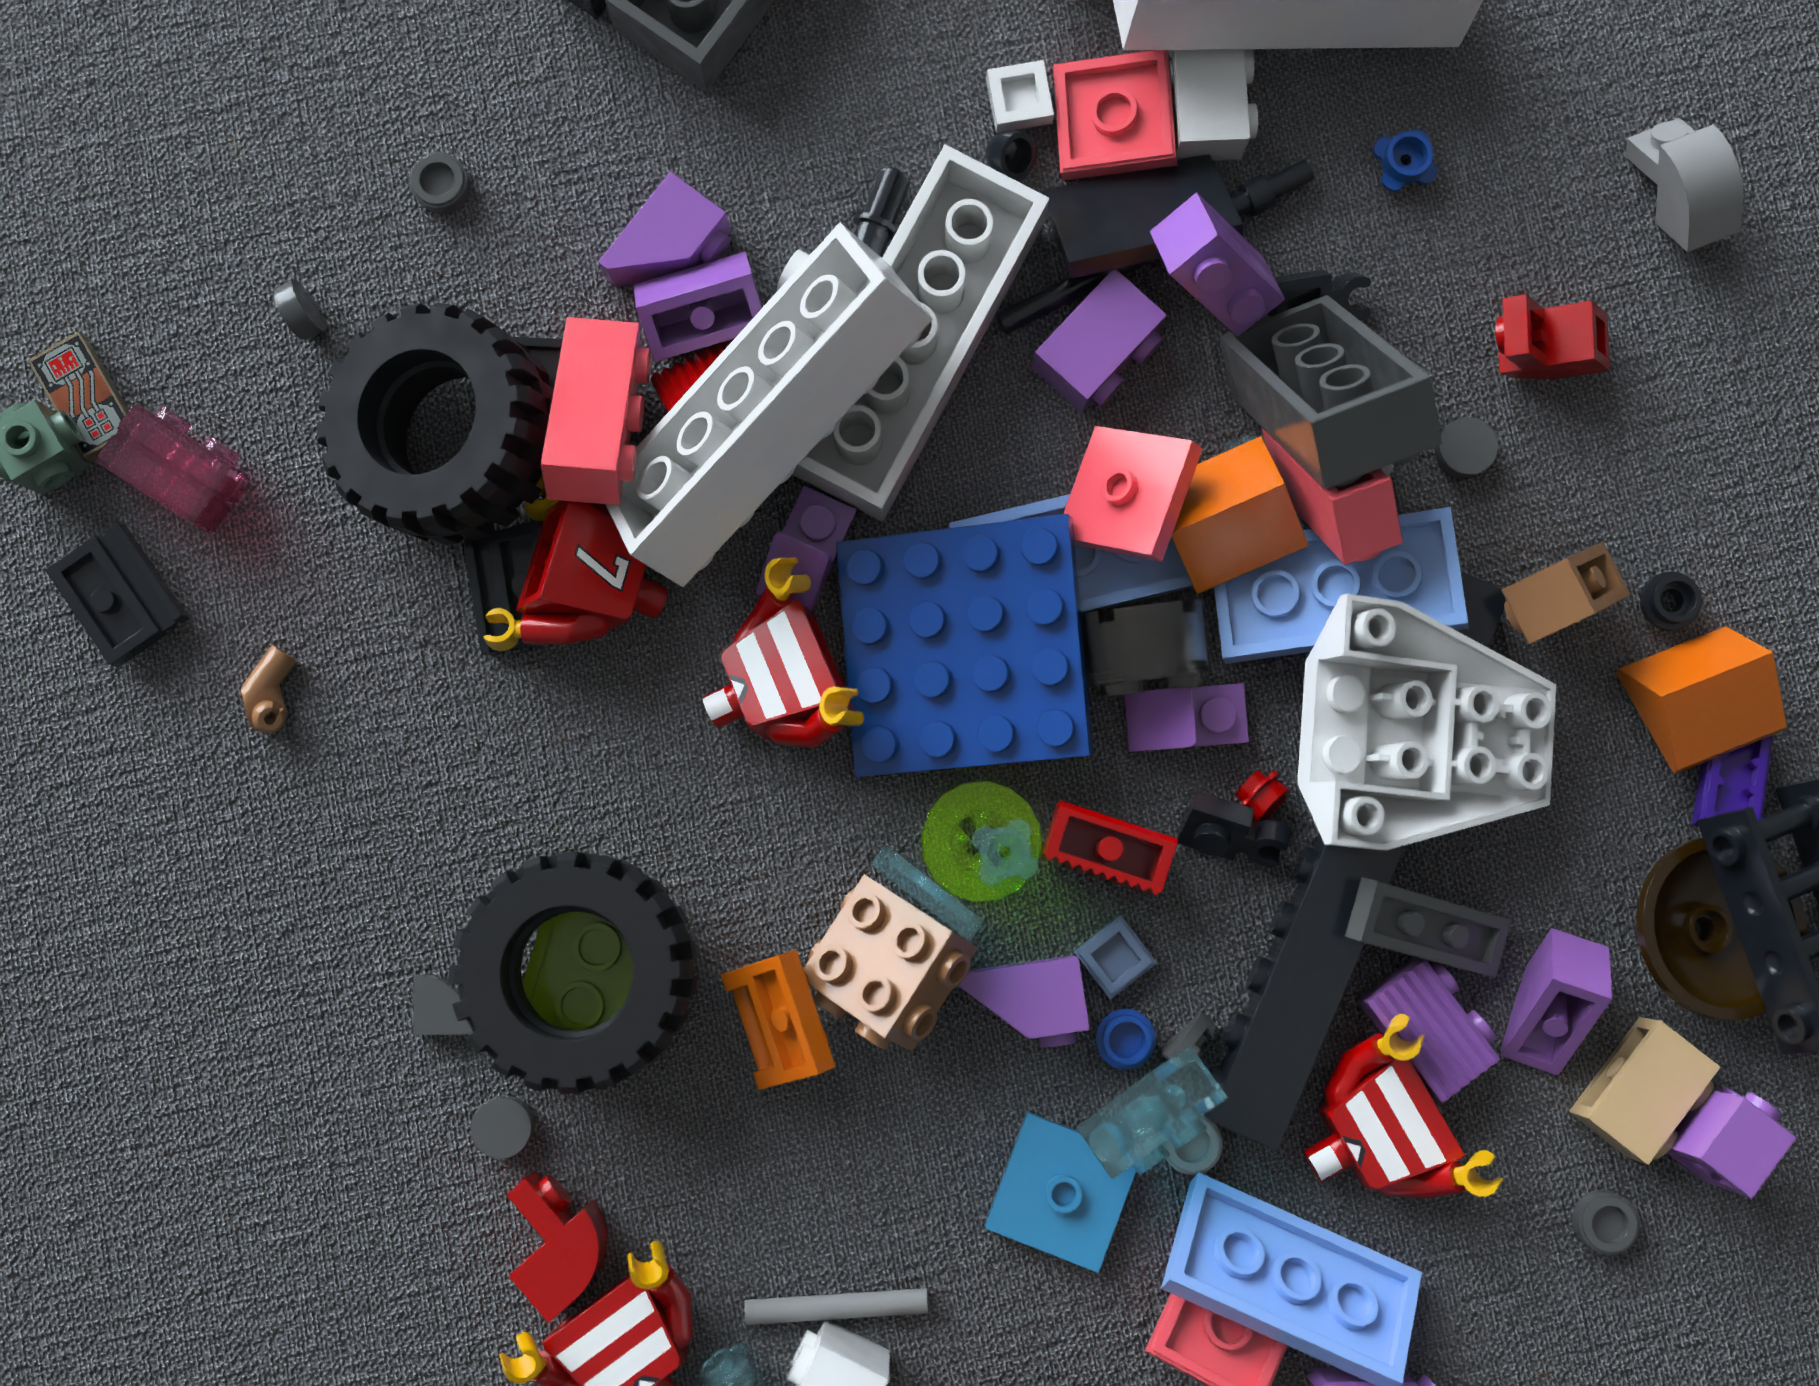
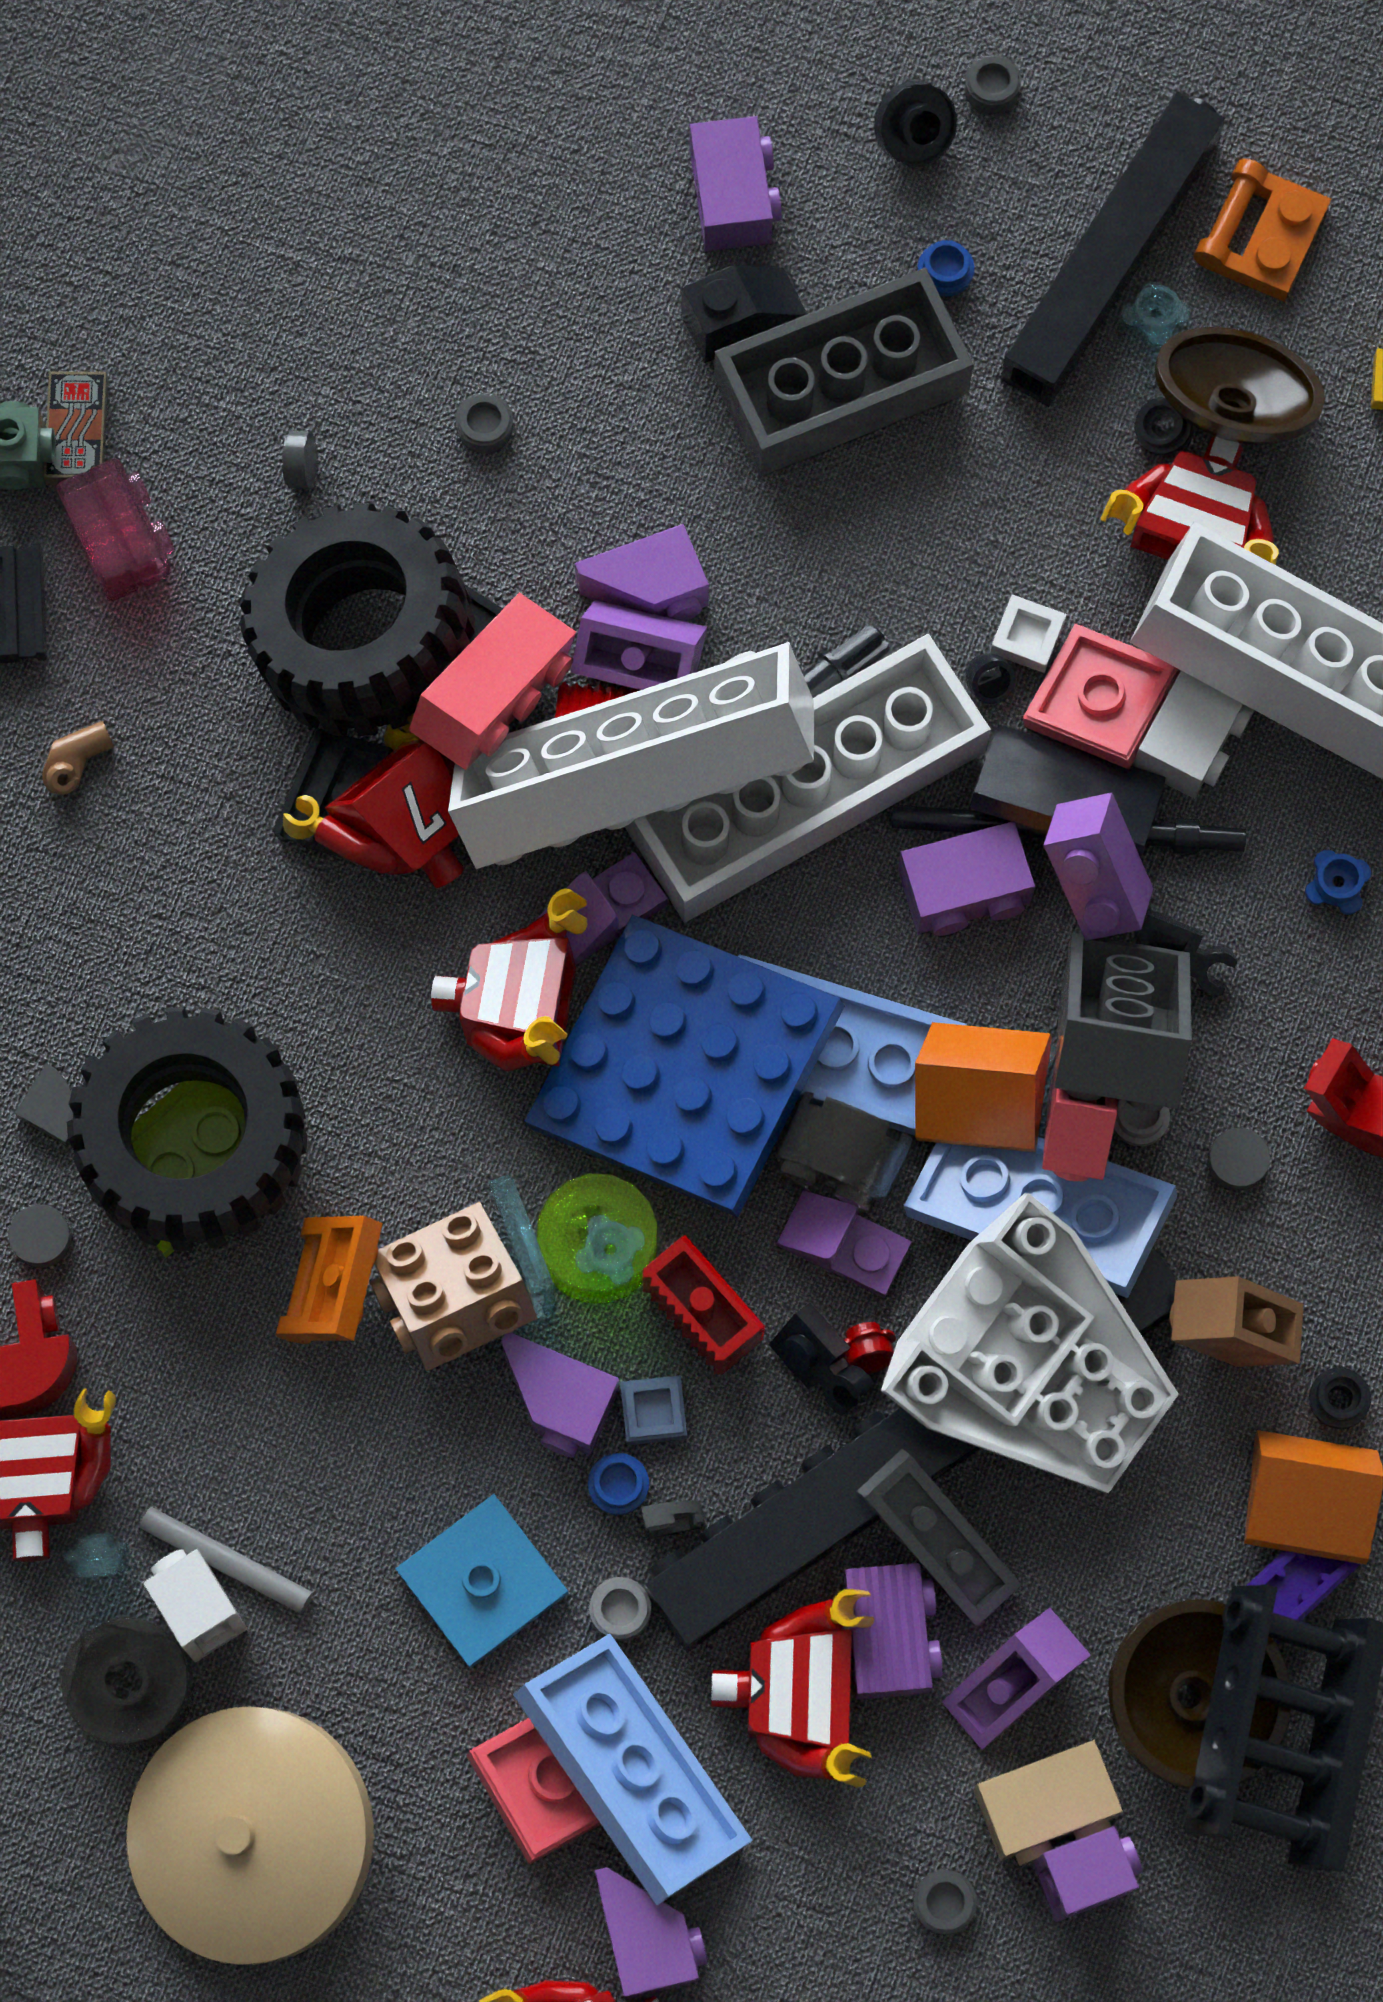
camera: 30 degrees right, 10 degrees down
(1131, 491) = (906, 1012): coral plate -> none
(1151, 1112) = (597, 1543): clear light blue brick -> none

